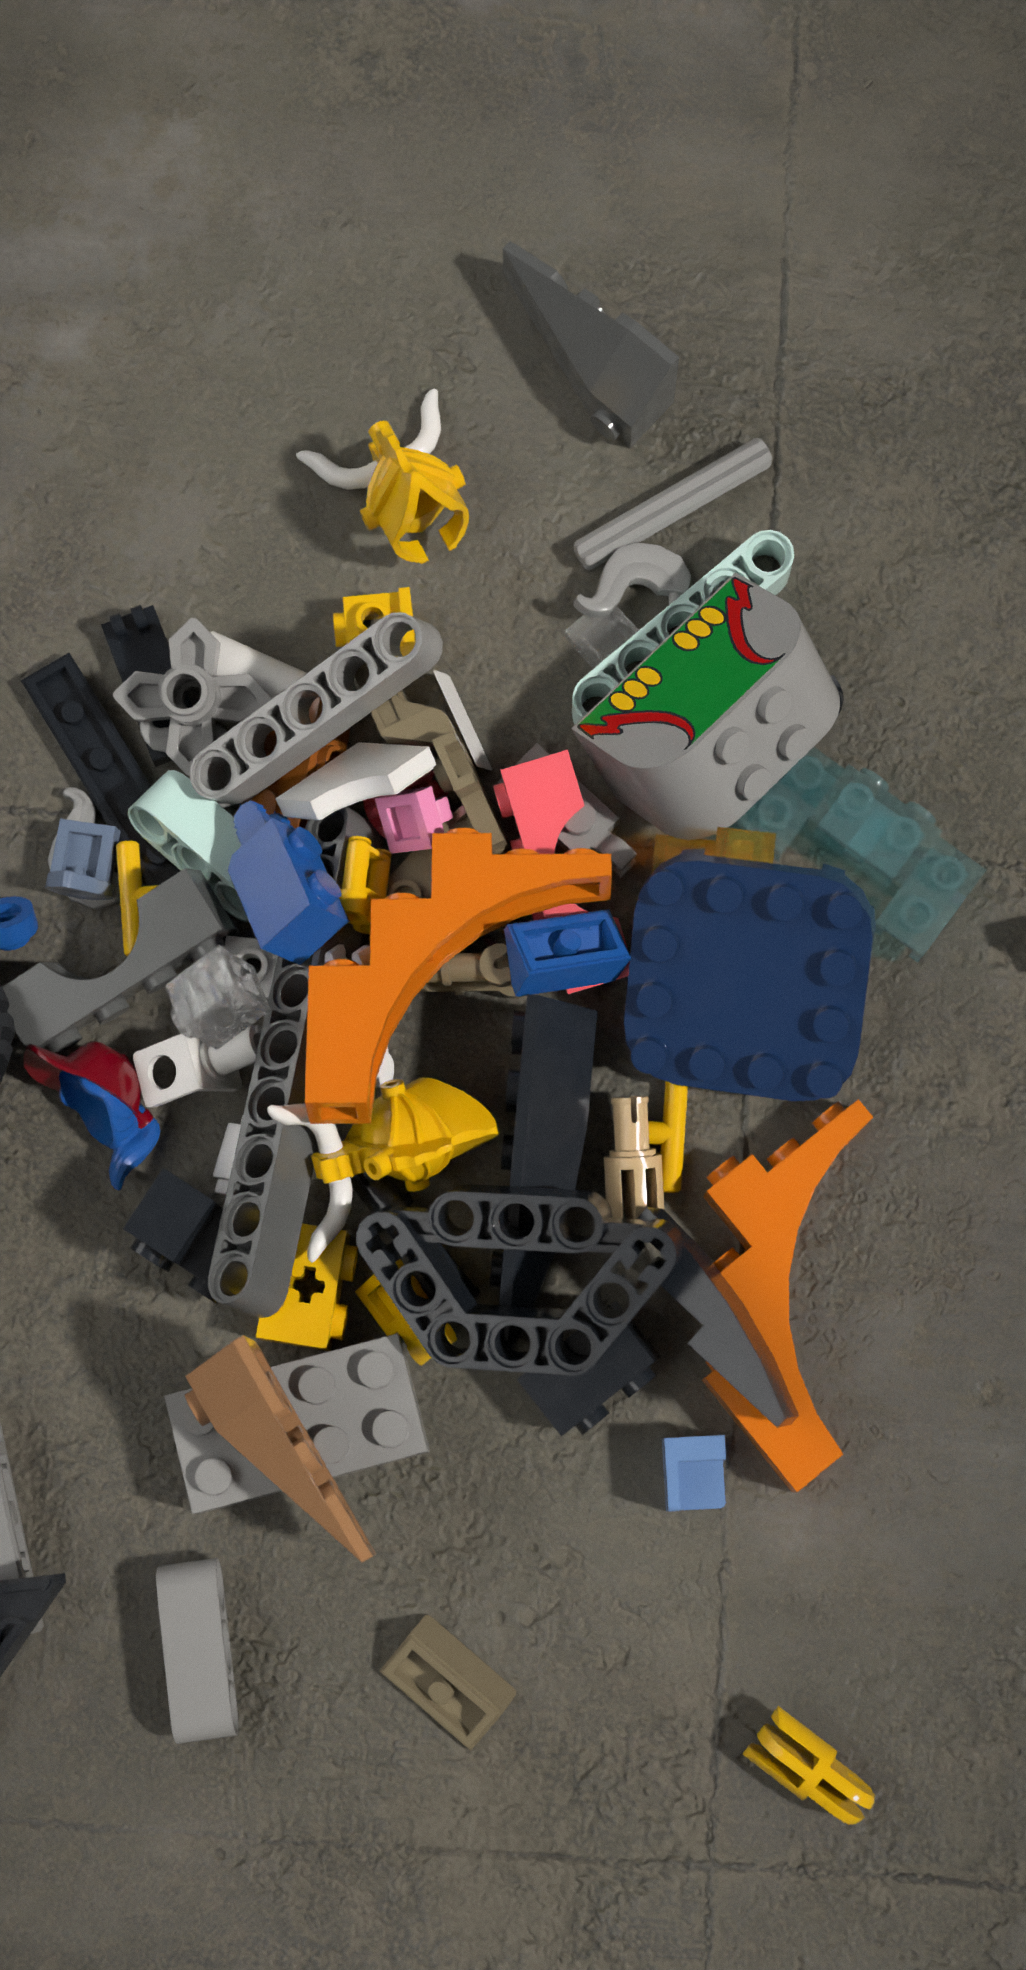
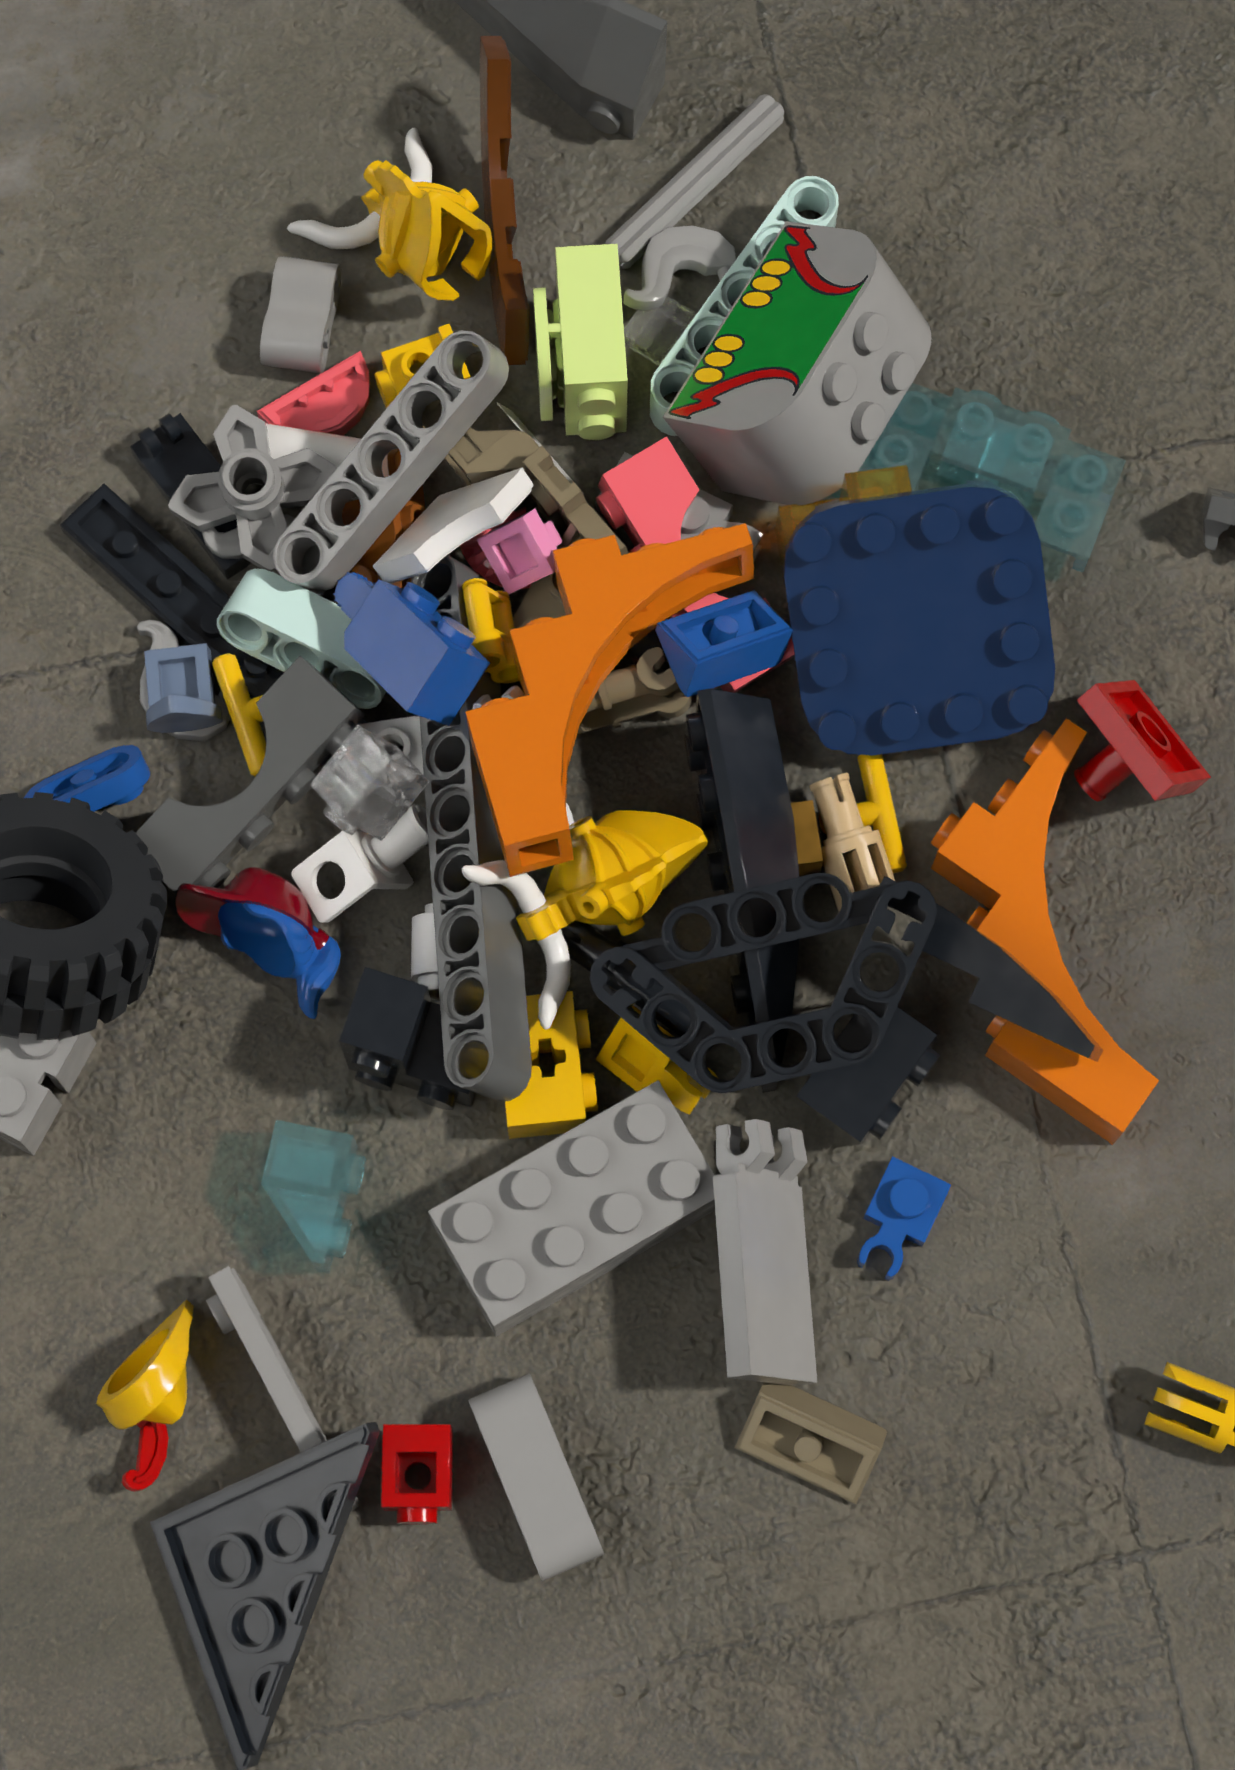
camera: 20 degrees left, 5 degrees down
(71, 1341) = (309, 1183): none -> clear light blue slope
(74, 1631) = (410, 1446): none -> red brick
(256, 1417) = (531, 1192): medium nougat wedge -> none
(283, 540) = (300, 314): none -> light grey axle
(284, 628) = (325, 403): none -> coral tile
(446, 1515) = (763, 1256): none -> light grey tile
(489, 484) = (506, 274): none -> reddish brown tile
(523, 636) = (584, 347): none -> yellowish green brick
(589, 1500) = (903, 1209): none -> blue plate
(594, 1145) = (807, 838): none -> pearl gold tile
(694, 1472) = (1005, 1146): medium blue panel -> none
(917, 1139) = (1139, 744): none -> red tile

